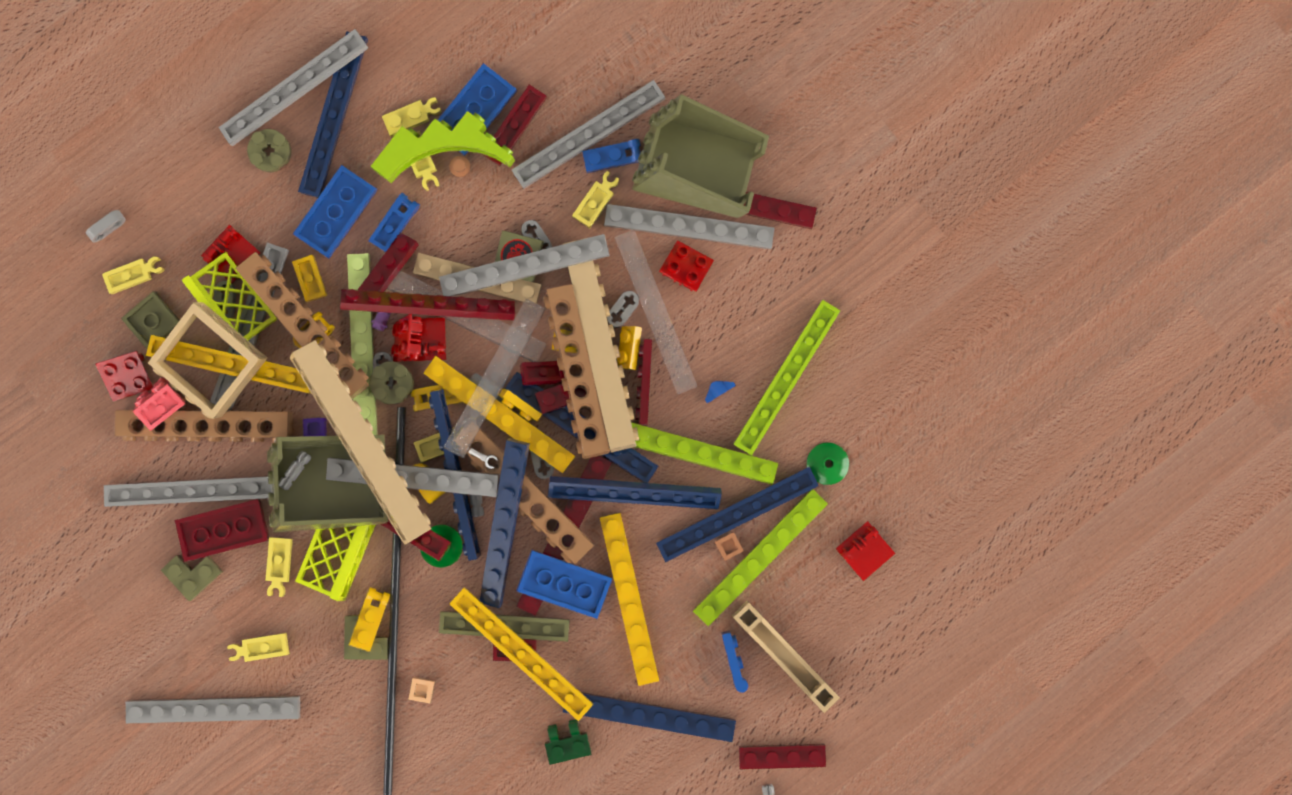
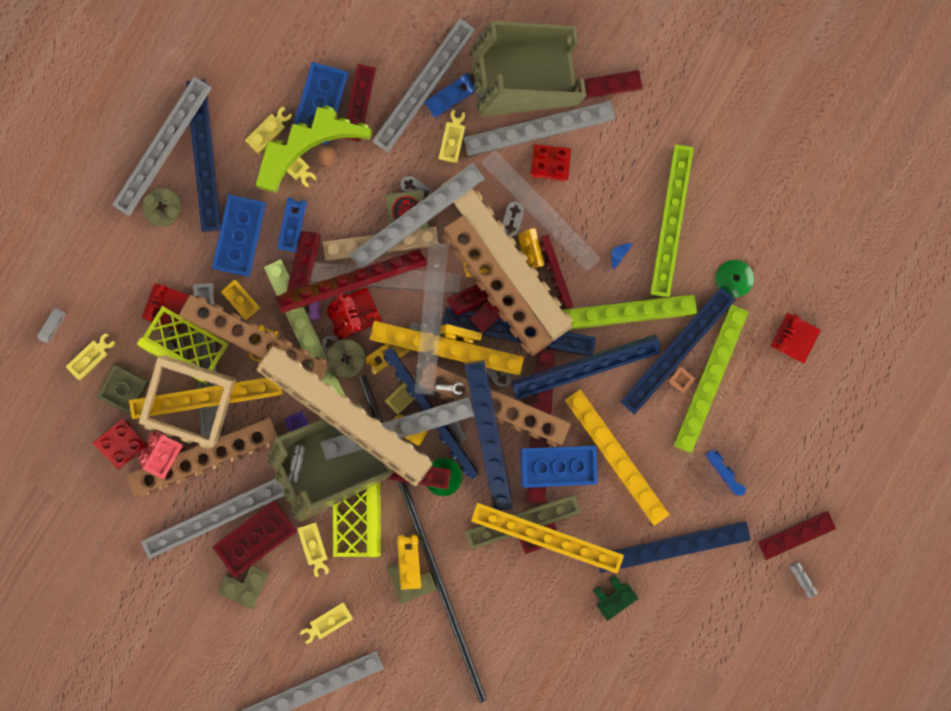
camera: 20 degrees left, 0 degrees up
(421, 690) = (476, 602): light nougat plate -> none
(785, 656) = (765, 451): tan arch -> none

